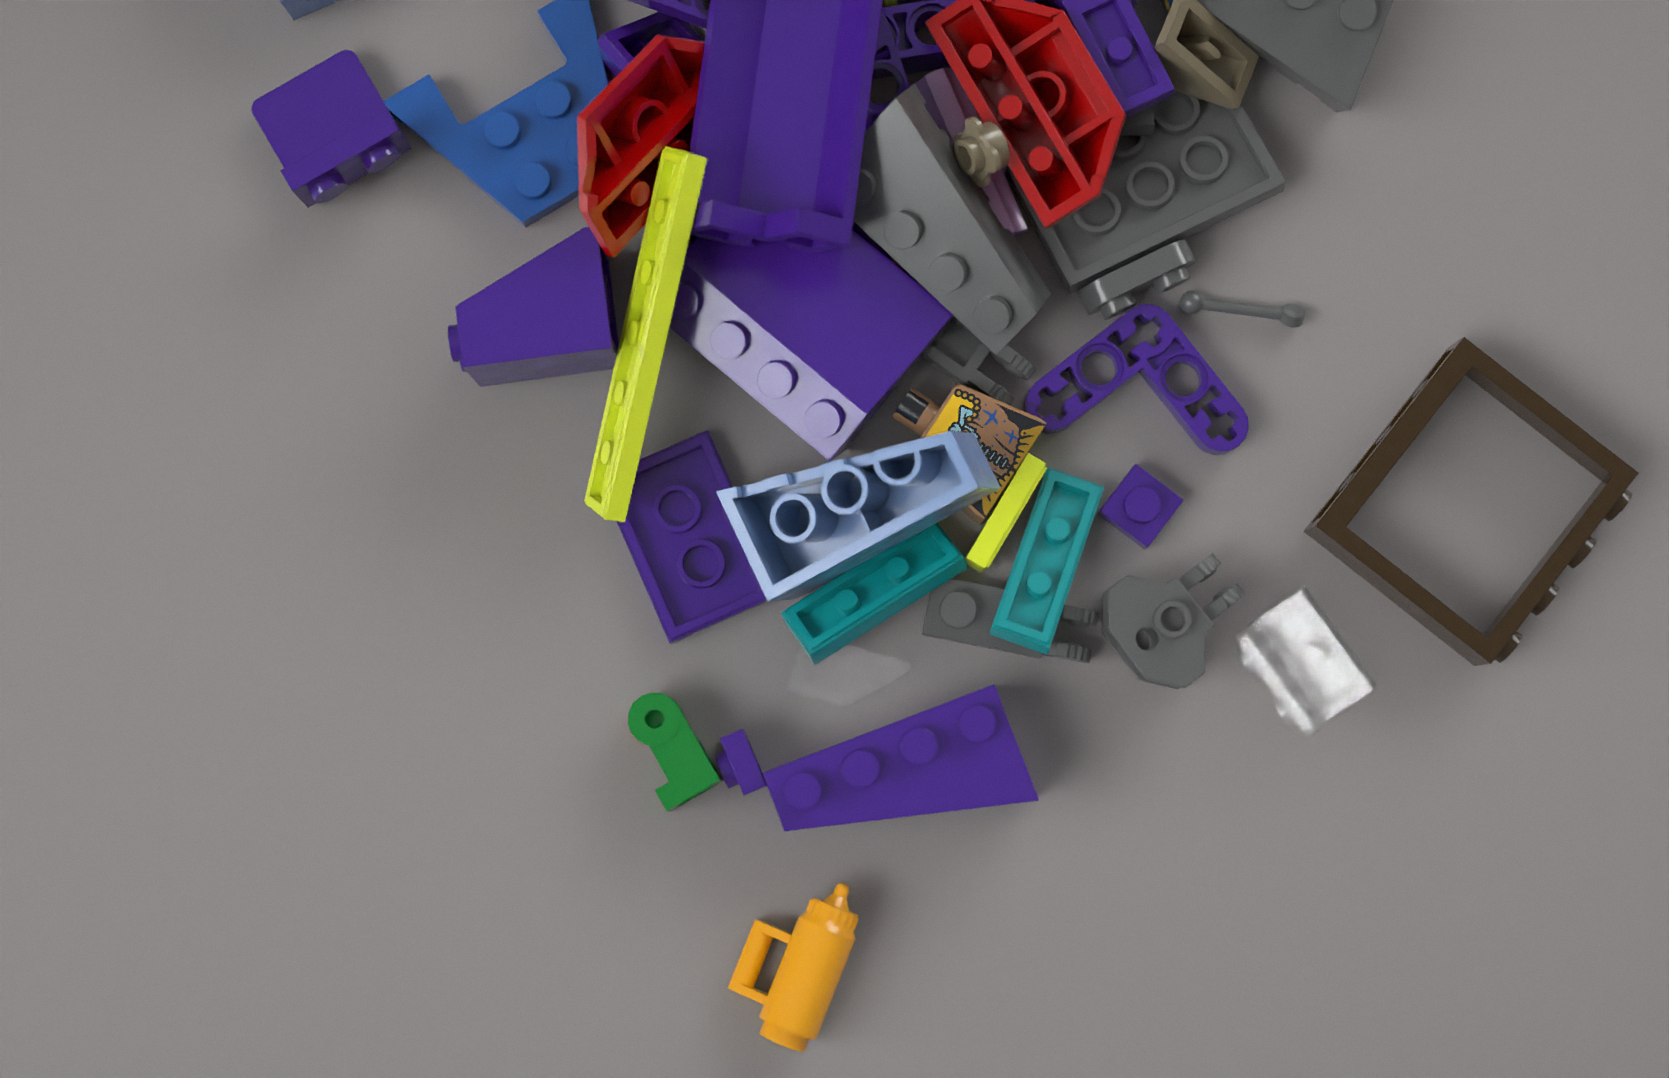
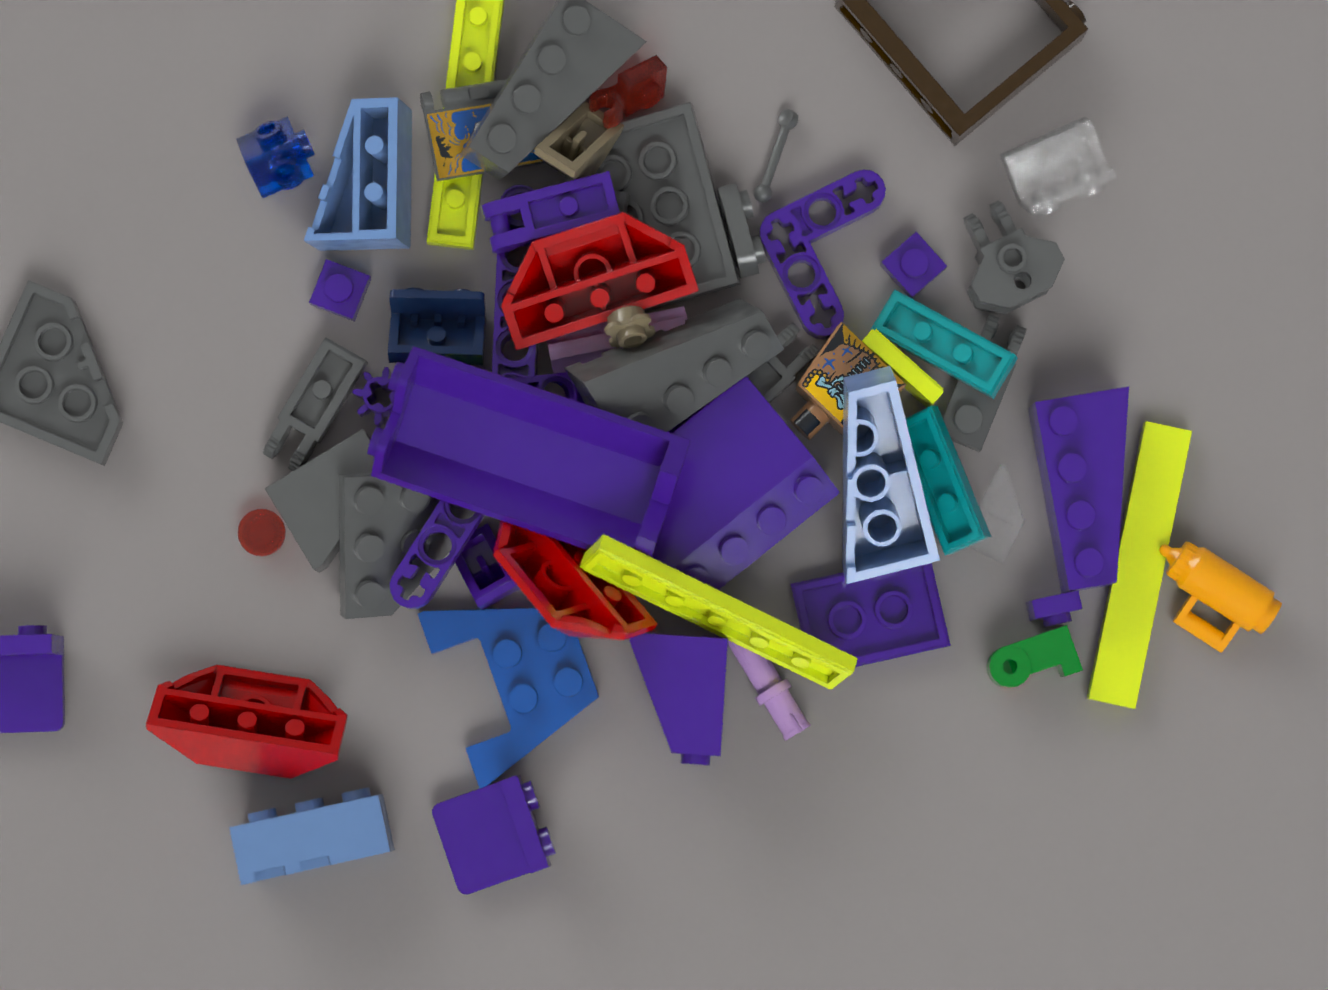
camera: 75 degrees left, 0 degrees up
(568, 432) = (771, 691): none -> lavender pin
(818, 862) = (1140, 571): none -> neon yellow tile
(1286, 113) = (635, 90): none -> clear red plate

